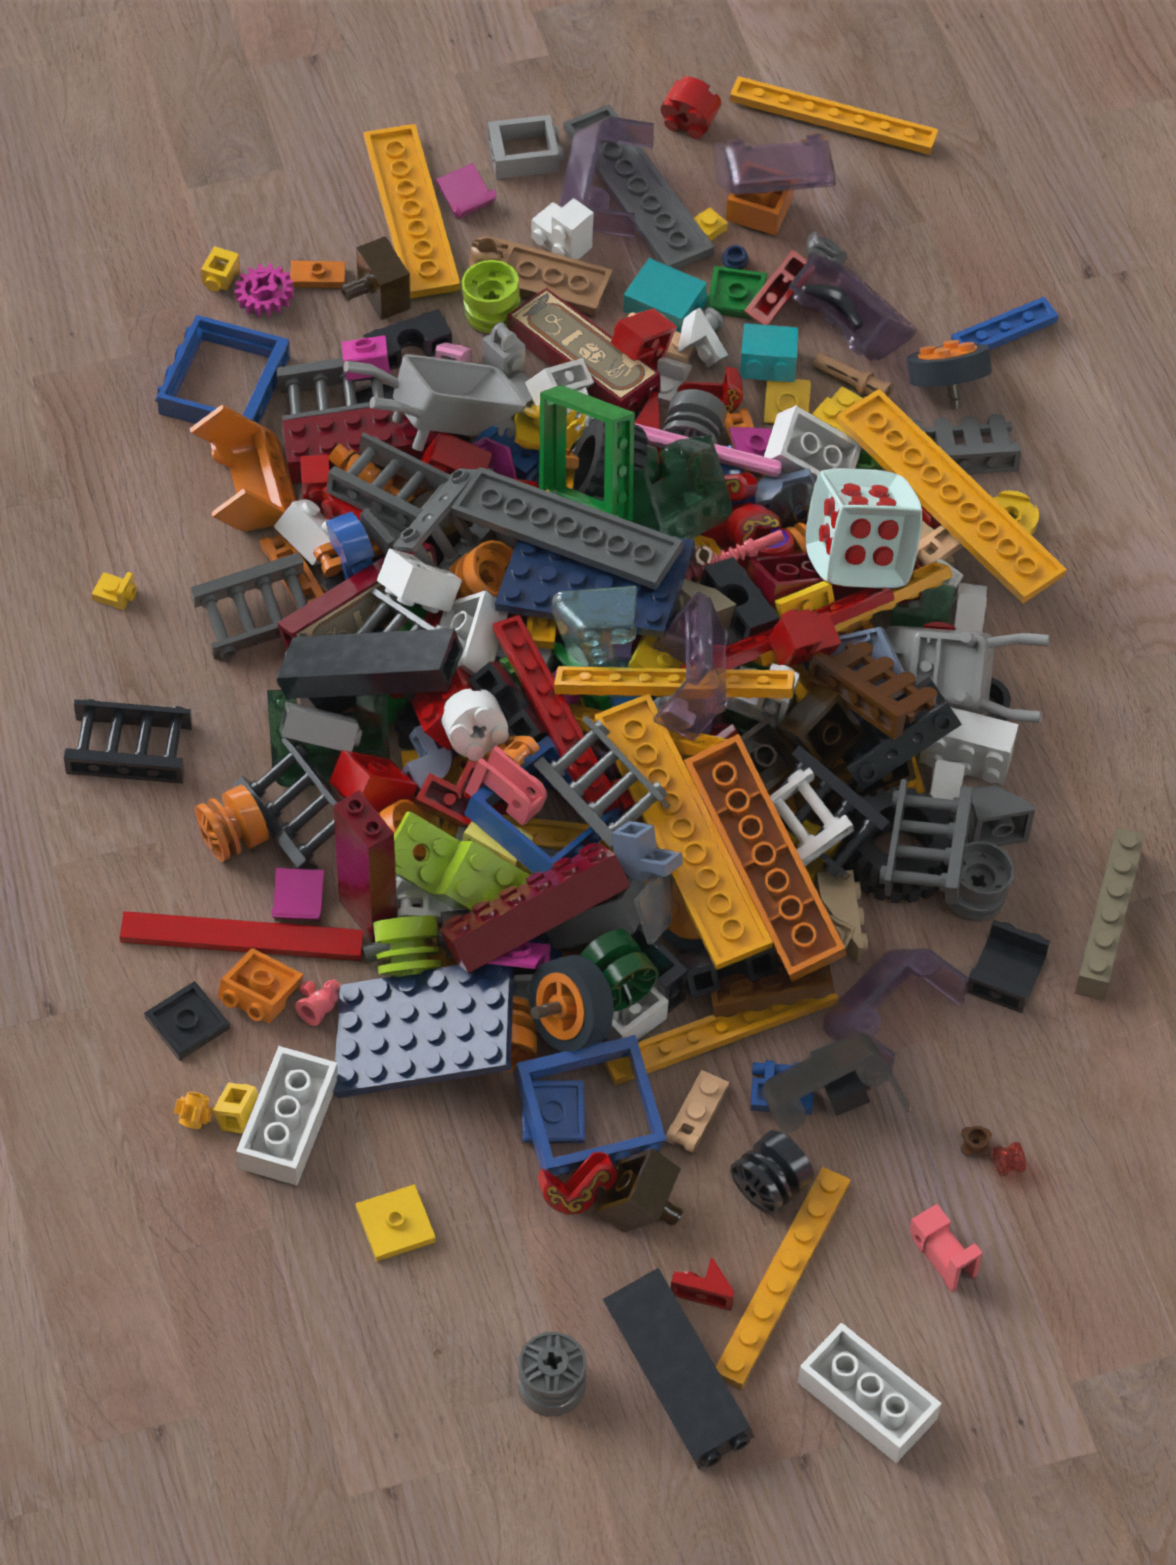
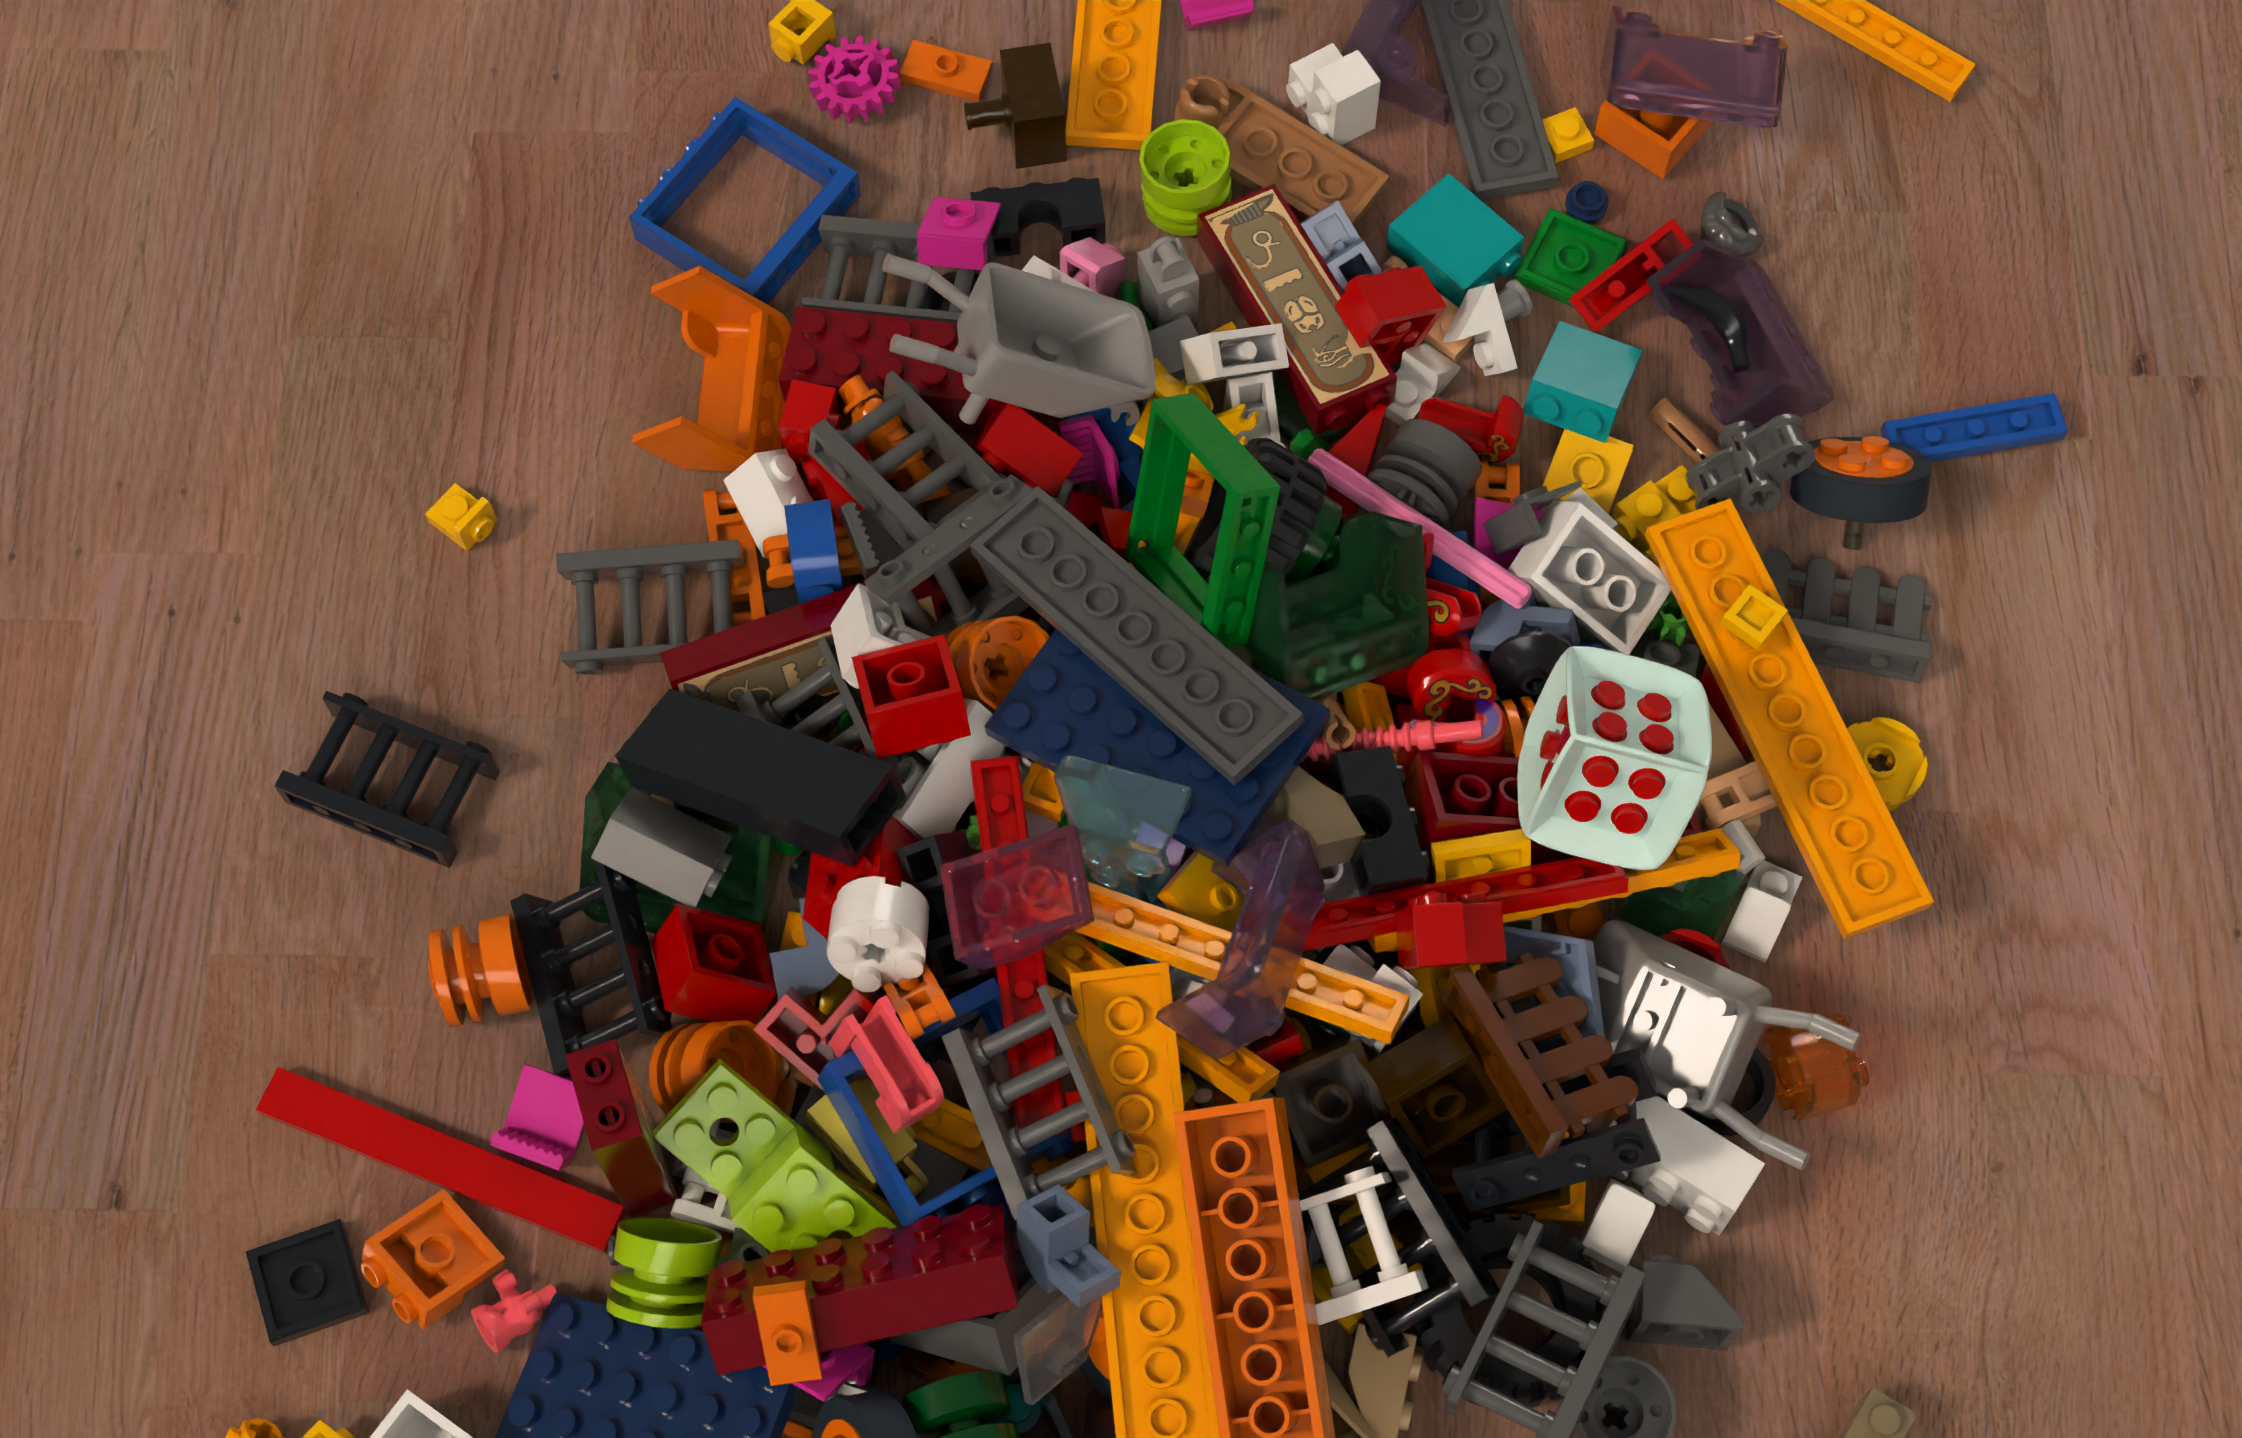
camera: 20 degrees right, 10 degrees up
(447, 594) = (911, 696): none -> red brick
(504, 932) = (787, 1332): none -> orange plate
(554, 676) = (1016, 898): none -> clear pink slope
(598, 310) = (1340, 244): none -> sand blue brick
(763, 427) = (1519, 522): none -> dark grey piece
(890, 360) = (1752, 464): none -> dark grey axle
(915, 445) = (1753, 617): none -> yellow plate
(1028, 676) = (1814, 1072): none -> clear orange brick

